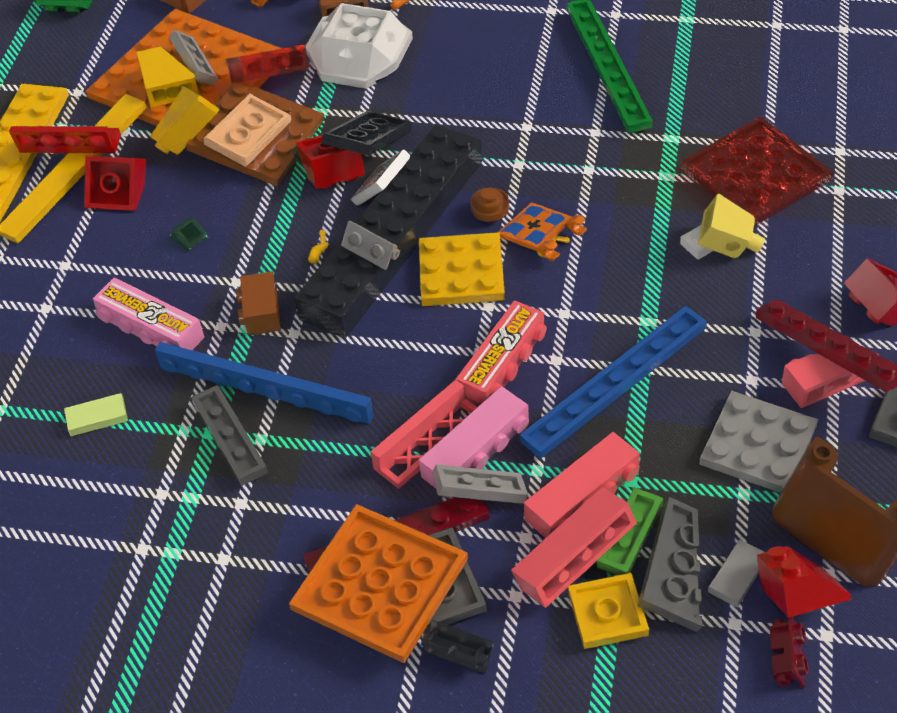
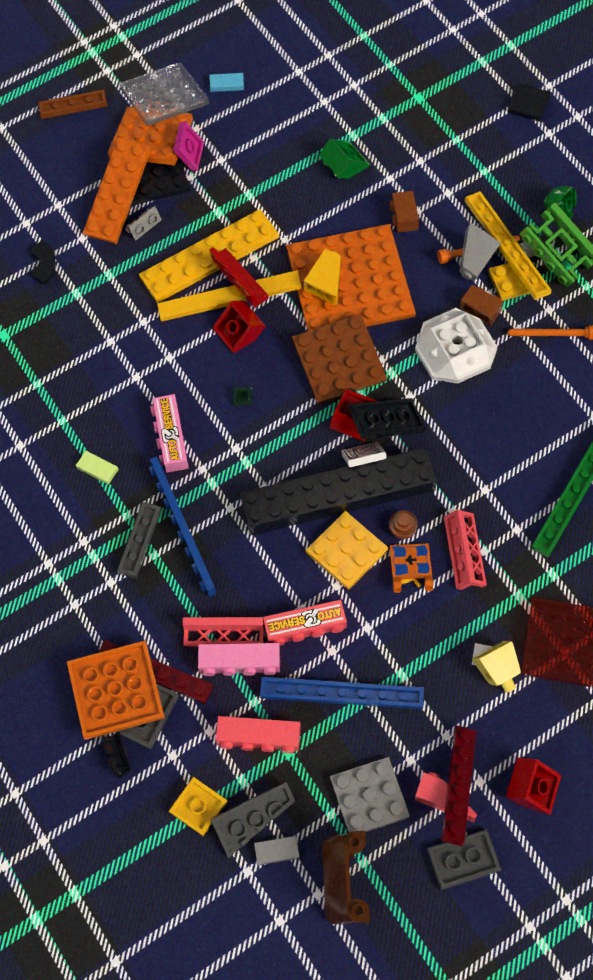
camera: 45 degrees right, 15 degrees up
(183, 121) = (304, 320): yellow slope -> none
(193, 57) = (354, 276): light grey plate -> none
(247, 130) = (330, 357): light nougat tile -> none
(259, 303) = (228, 475): dark orange brick -> none
(267, 63) = (387, 318): clear red brick -> none
(317, 250) = (292, 467): yellow piece -> none
(369, 245) = (300, 491): light grey hinge -> none
(479, 484) = (211, 685): light grey plate -> none
(570, 179) = (461, 549): none -> coral fence
(574, 546) = (215, 761): coral brick -> none
(623, 553) = (253, 779): bright green plate -> none
(793, 663) = (244, 918): dark red hinge -> none
(797, 582) = (290, 886): red slope -> none

